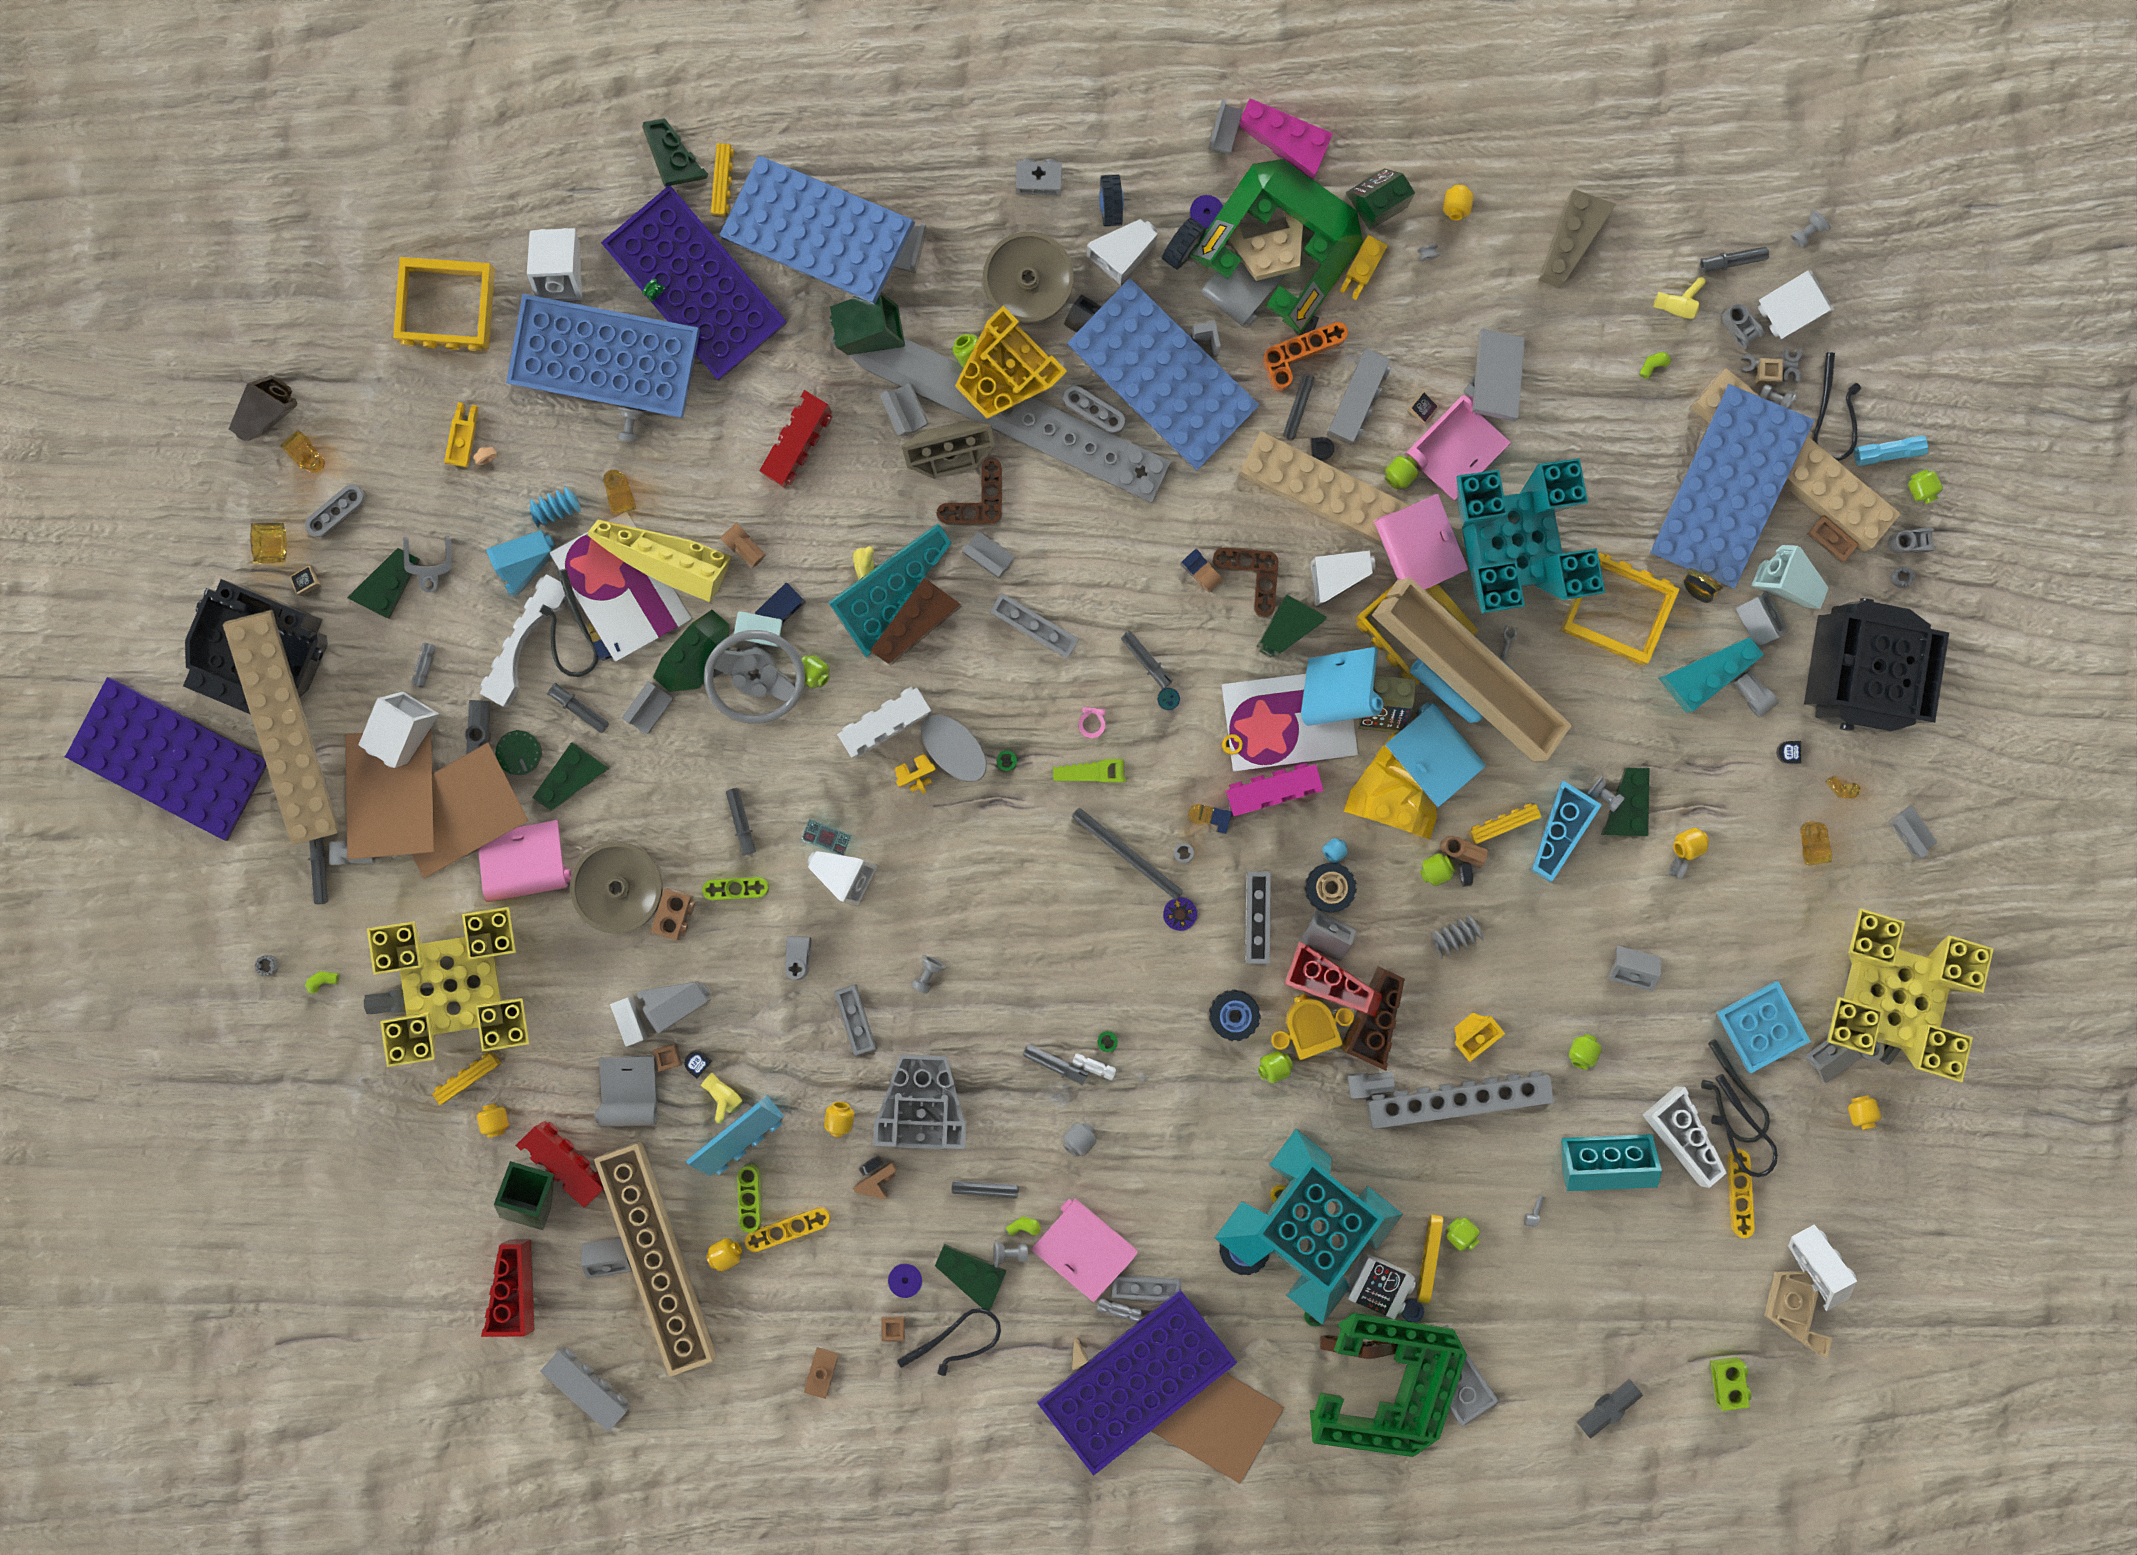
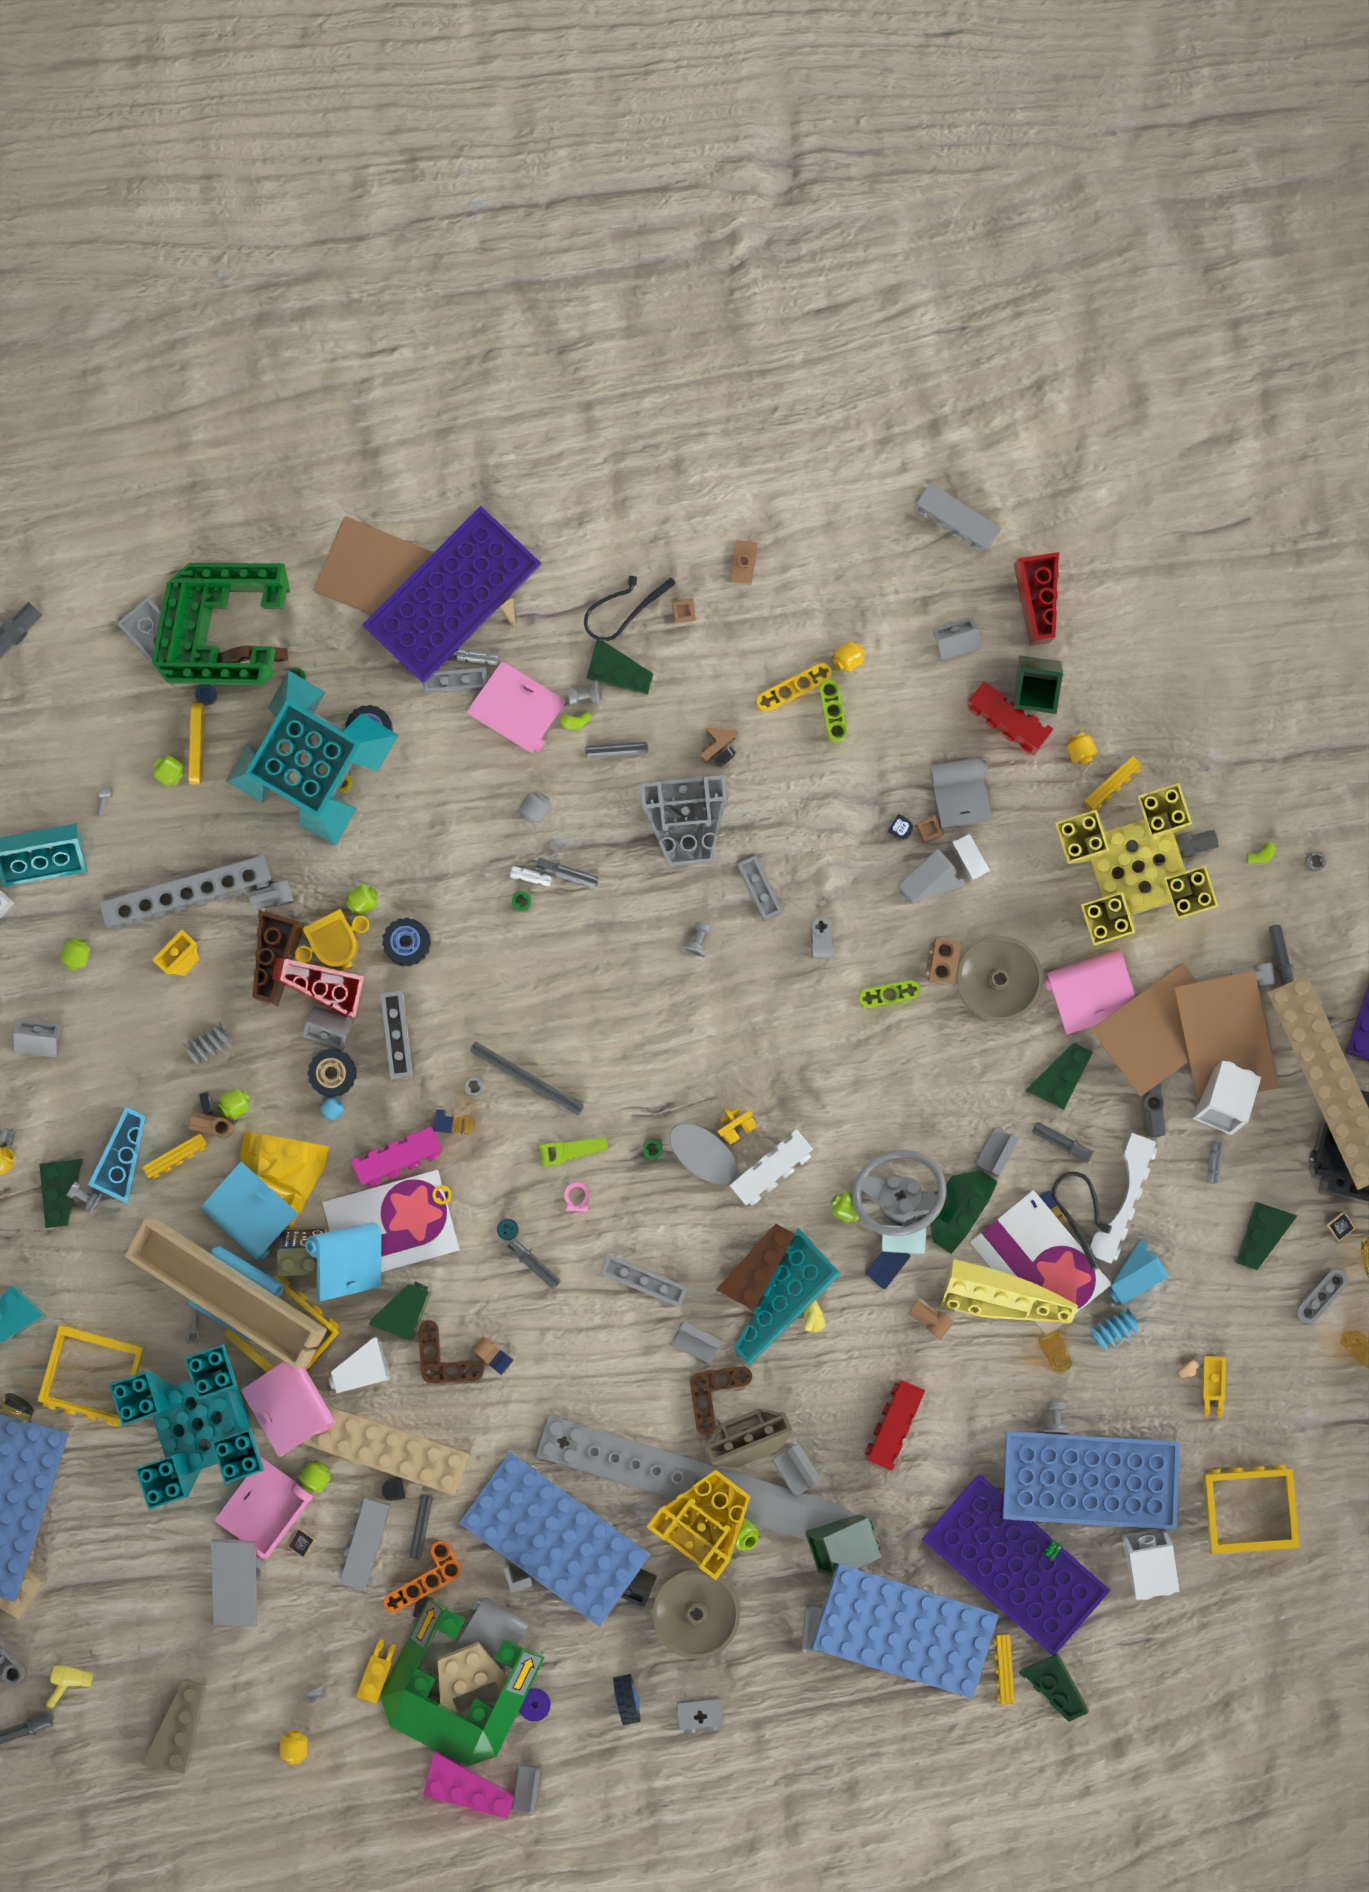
camera: 170 degrees right, 5 degrees down
(427, 572) = (1222, 1250): light grey piece -> none
(518, 752) = (1112, 1092): dark green tile -> none
(655, 1258) = (911, 645): tan brick -> none
(726, 1097) = (871, 801): light yellow piece -> none
(736, 1137) = (852, 765): medium azure slope -> none
(740, 821) = (894, 1057): dark grey axle -> none
(826, 837) = (811, 1054): clear light blue tile -> none
(839, 1119) = (761, 794): yellow head -> none
(842, 875) = (790, 1020): white slope -> none
(905, 1280) = (678, 656): dark purple piece -> none
(1086, 402) = (605, 1493): light grey plate -> none
(1123, 249) = (608, 1653): white slope -> none
(1180, 914) = (469, 1029): piece -> none
(1183, 243) = (551, 1667): black wheel -> none
(1379, 1285) = (239, 713): slope -> none
(1381, 197) = (369, 1742): dark green slope -> none
(1652, 361) = (87, 1619): lime arm -> none

